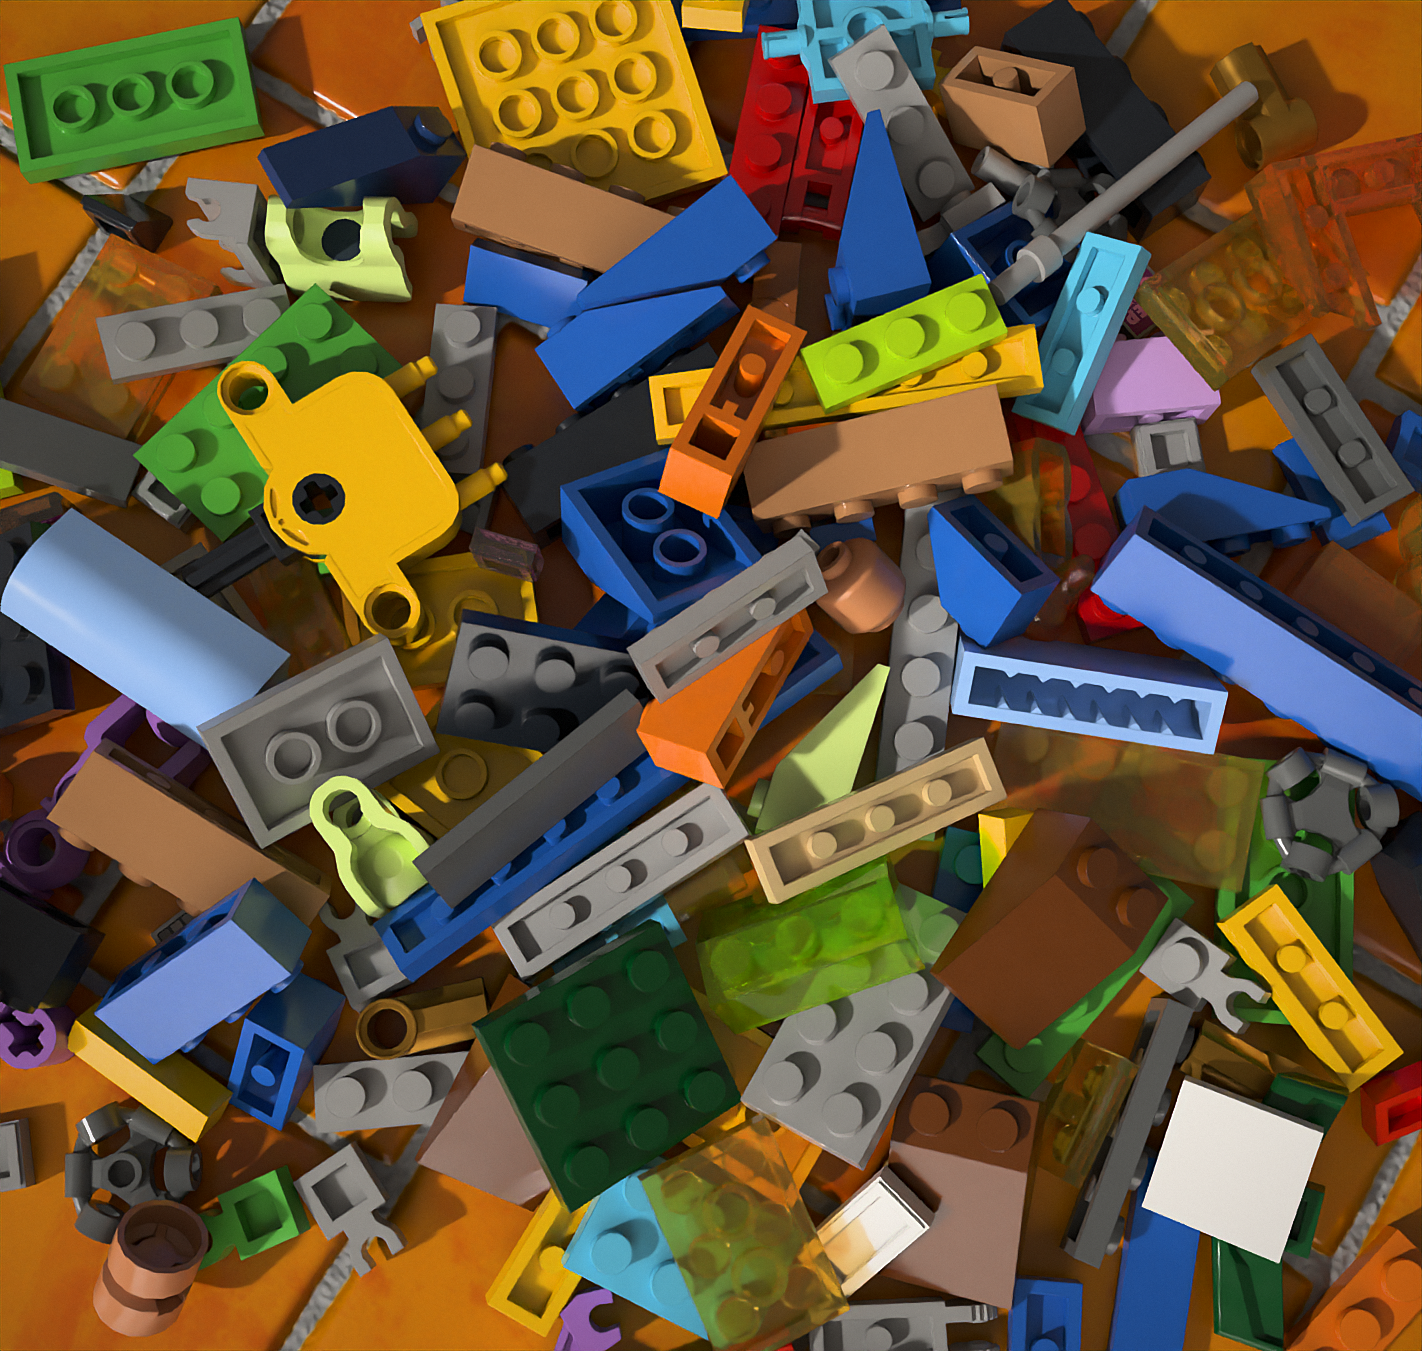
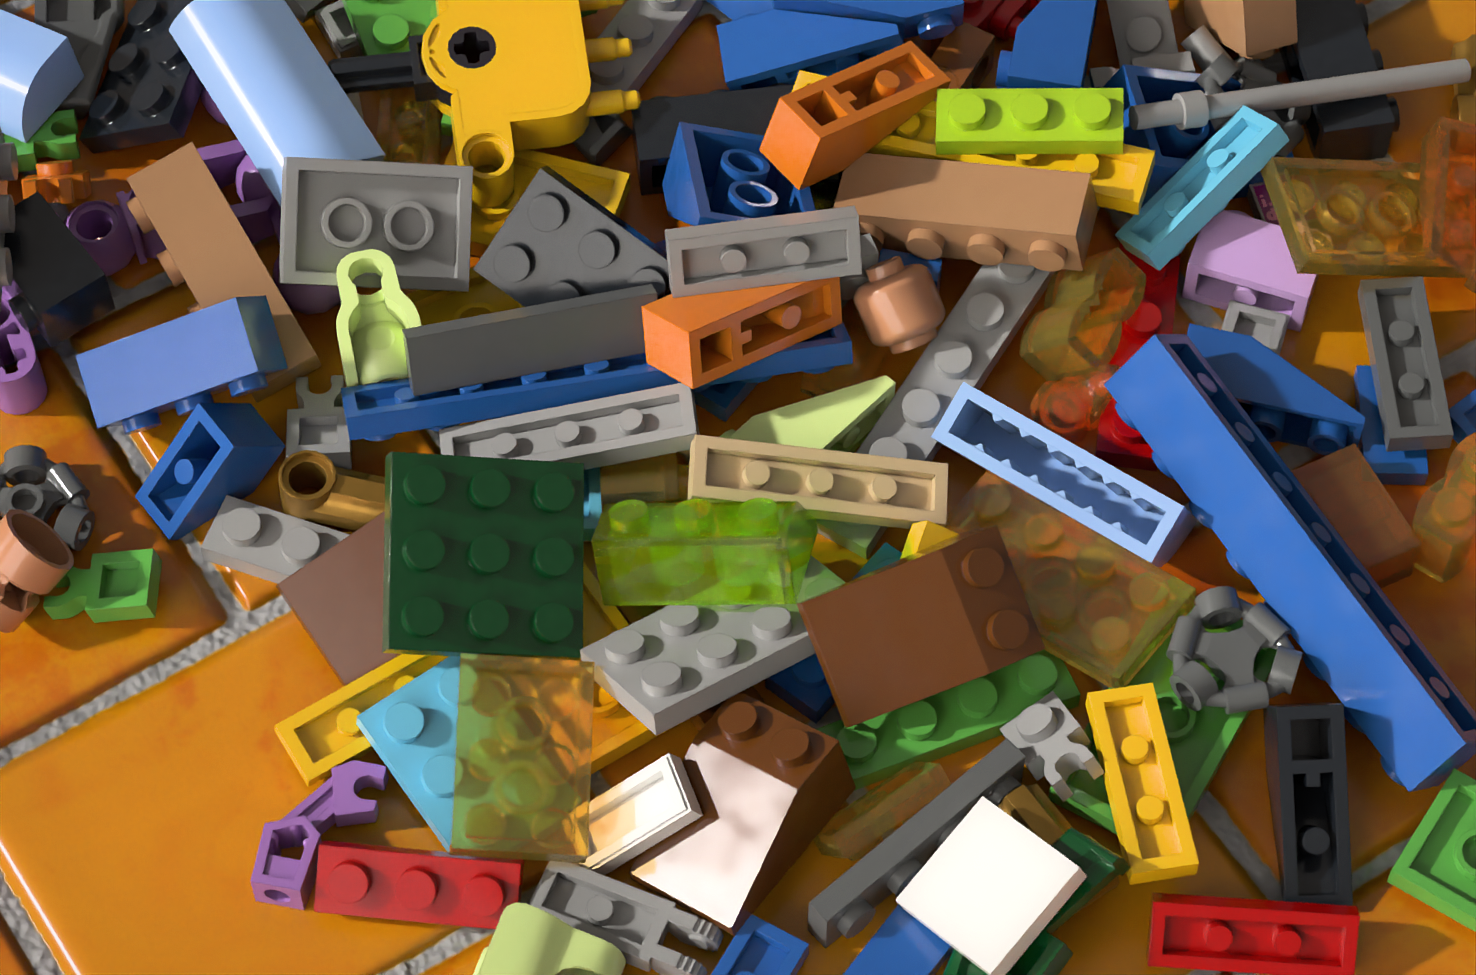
camera: 25 degrees right, 20 degrees down
(170, 1088) = (92, 451): yellow piece -> none
(345, 1198) = (197, 608): light grey plate -> none
(506, 555) = (607, 164): clear smoke tile -> none
(985, 572) = (1017, 337): blue slope -> none

